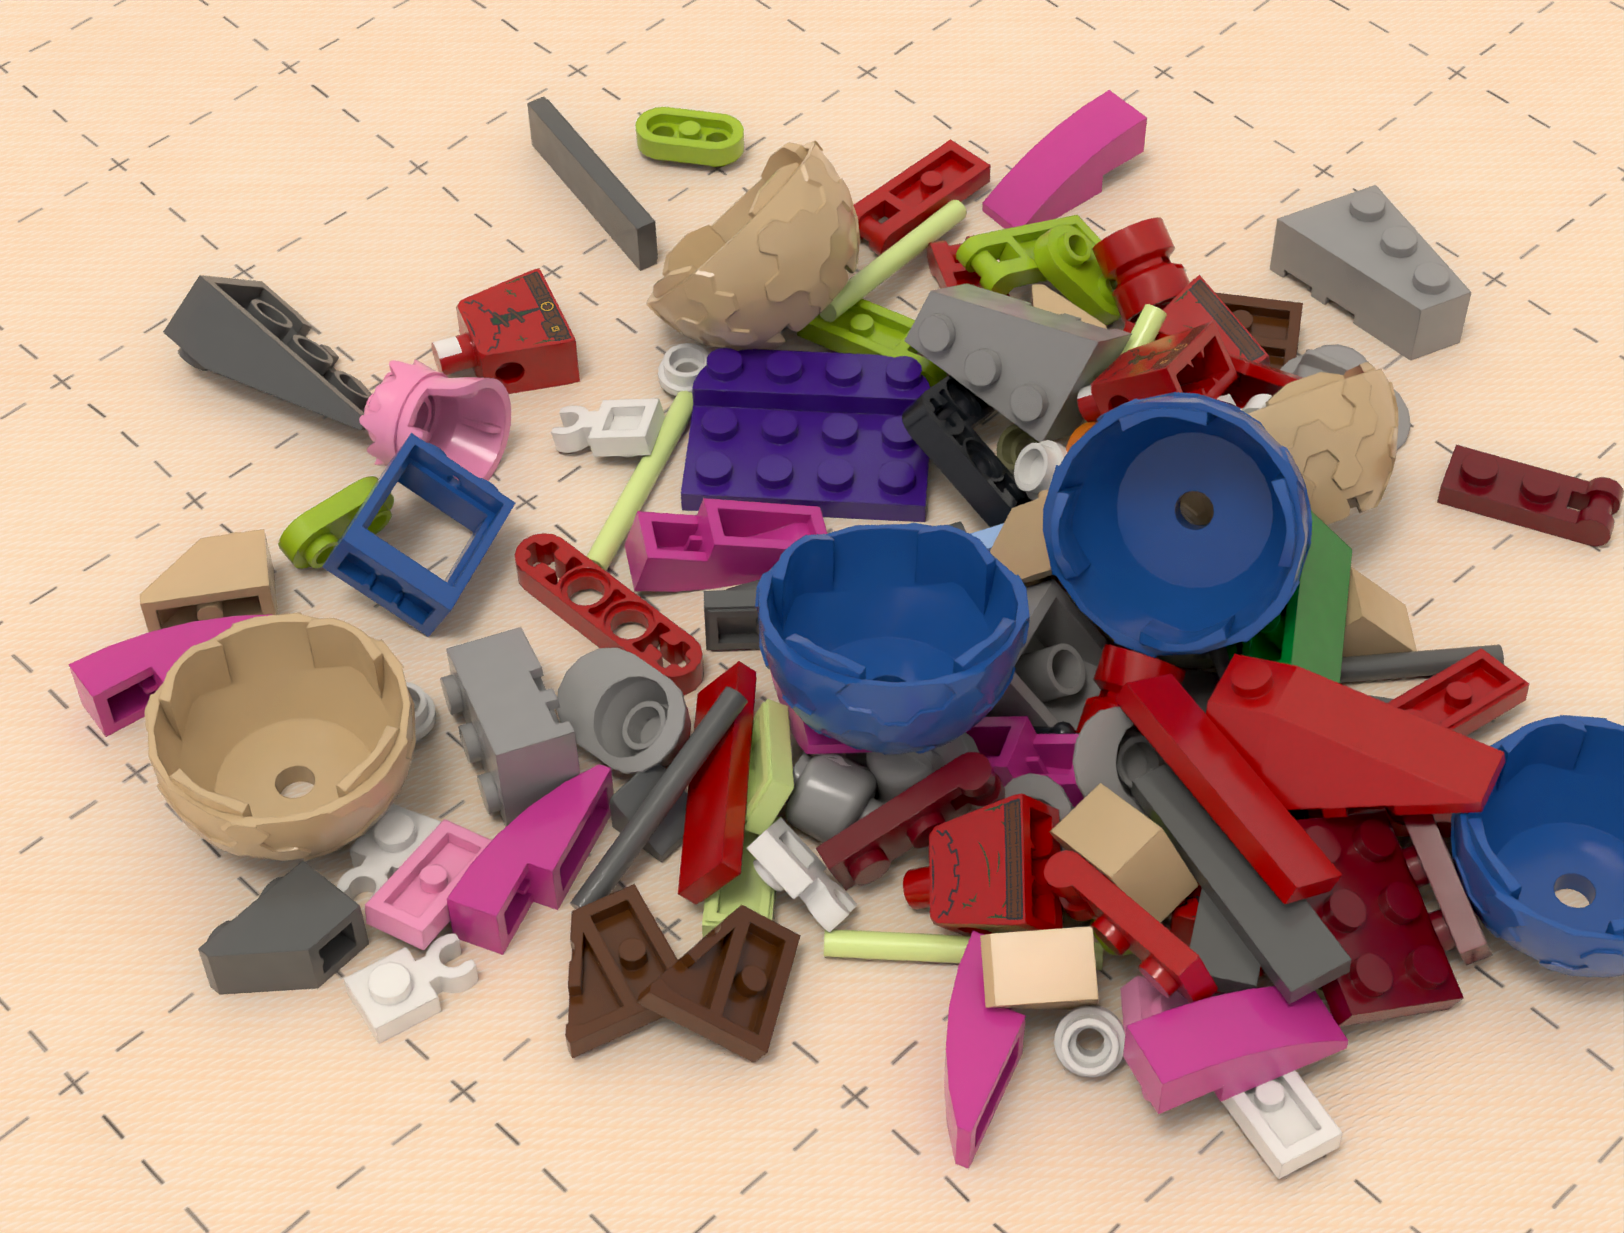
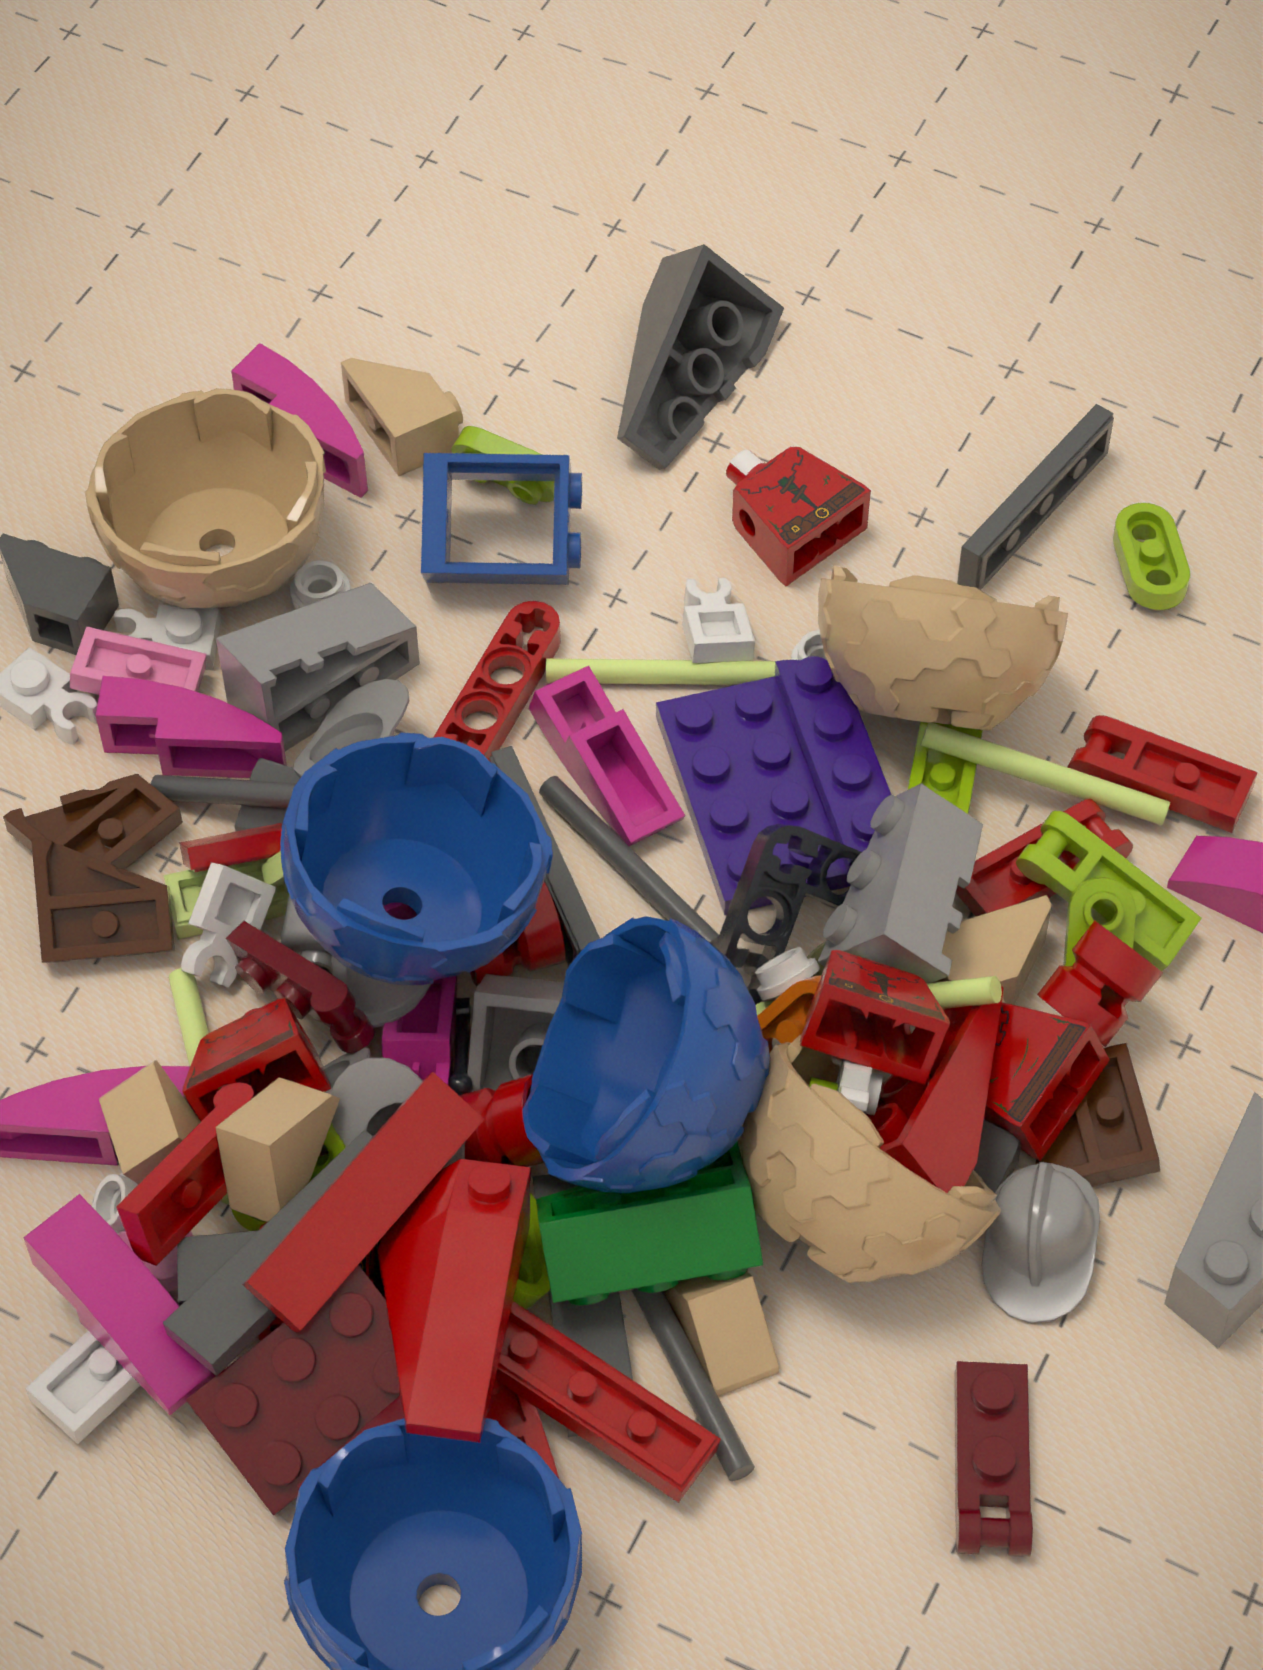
camera: 70 degrees right, 5 degrees up
(459, 415) = (635, 489): bright pink hat -> none

